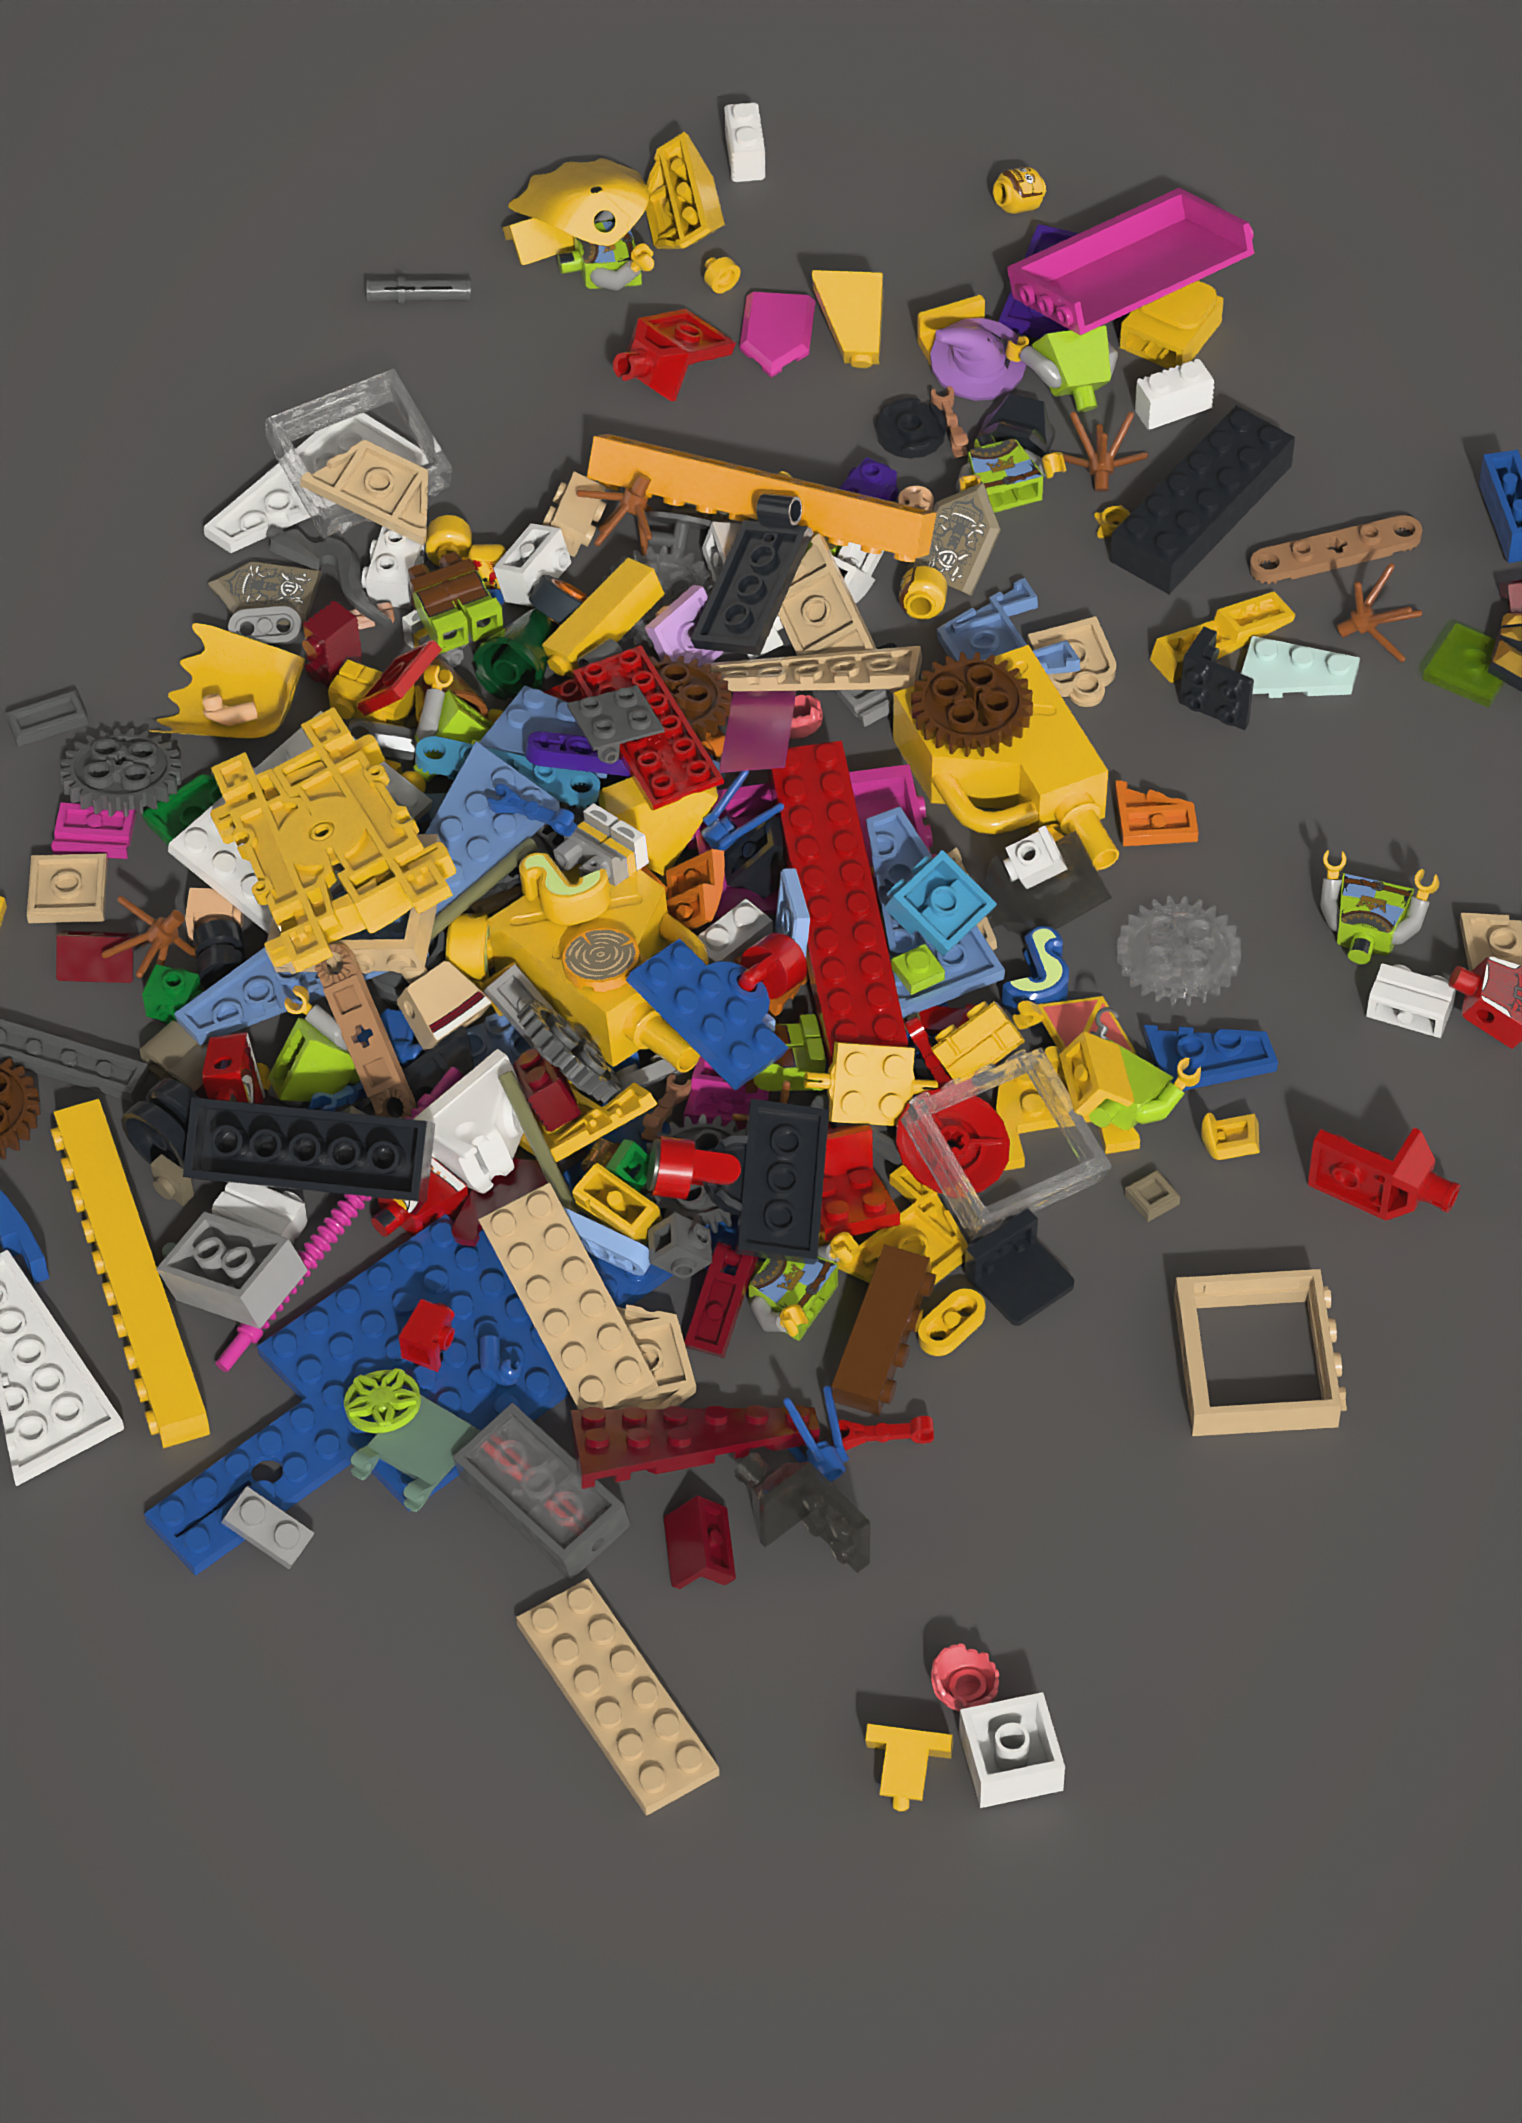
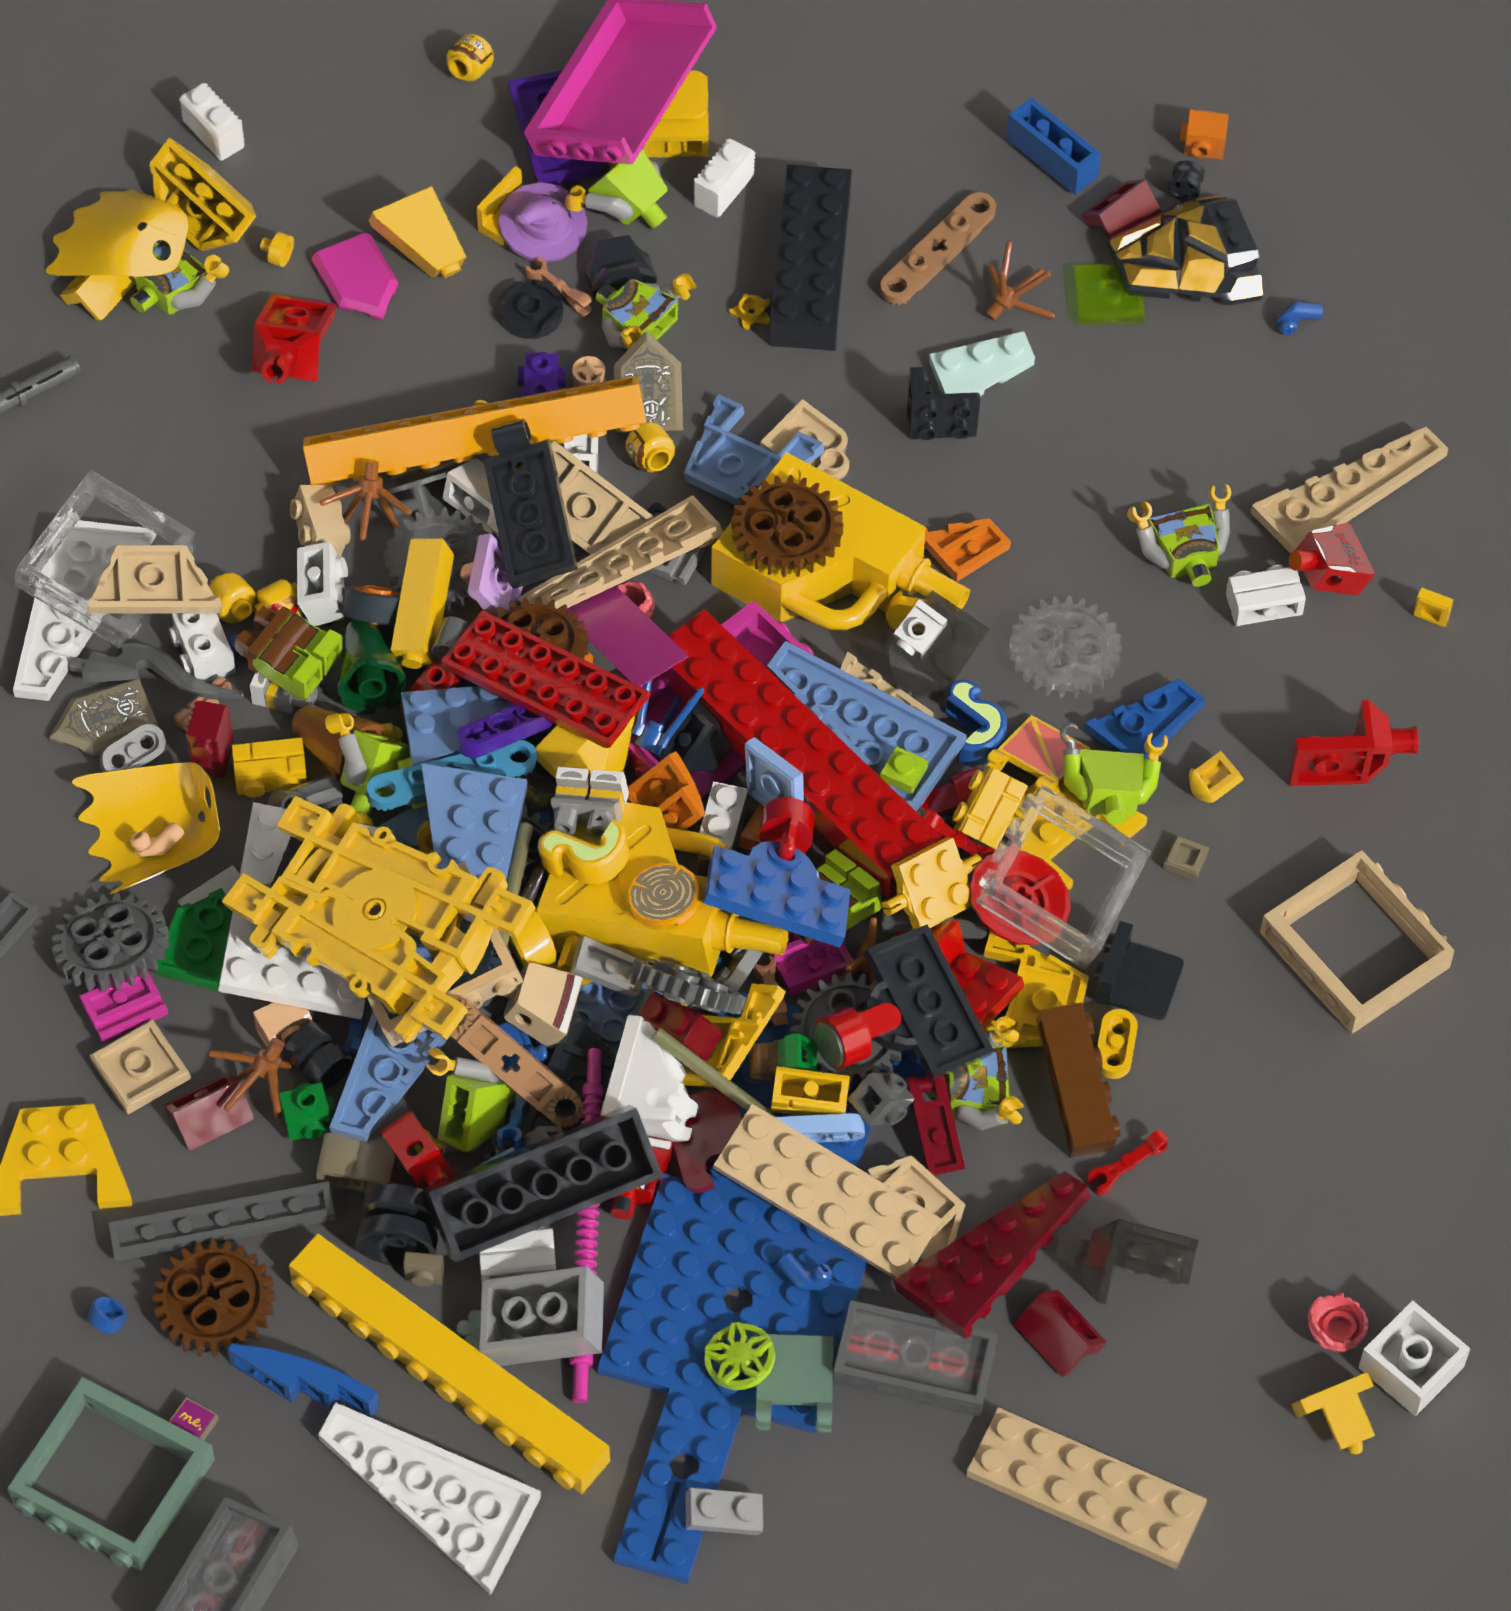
camera: 35 degrees left, 5 degrees up
(398, 677) = (301, 740): red tile -> none
(427, 1334) = (737, 1282): red brick -> none
(511, 803) = (550, 796): blue piece -> none
(615, 720) = (520, 686): dark grey hinge -> none
(822, 1456) = (1103, 1208): blue plant -> none
(939, 902) = (884, 706): dark azure plate -> none
(1095, 1072) = (1093, 784): yellow panel -> none
(1102, 463) = (706, 266): dark orange plant -> none
(1234, 630) = (910, 349): yellow slope -> none

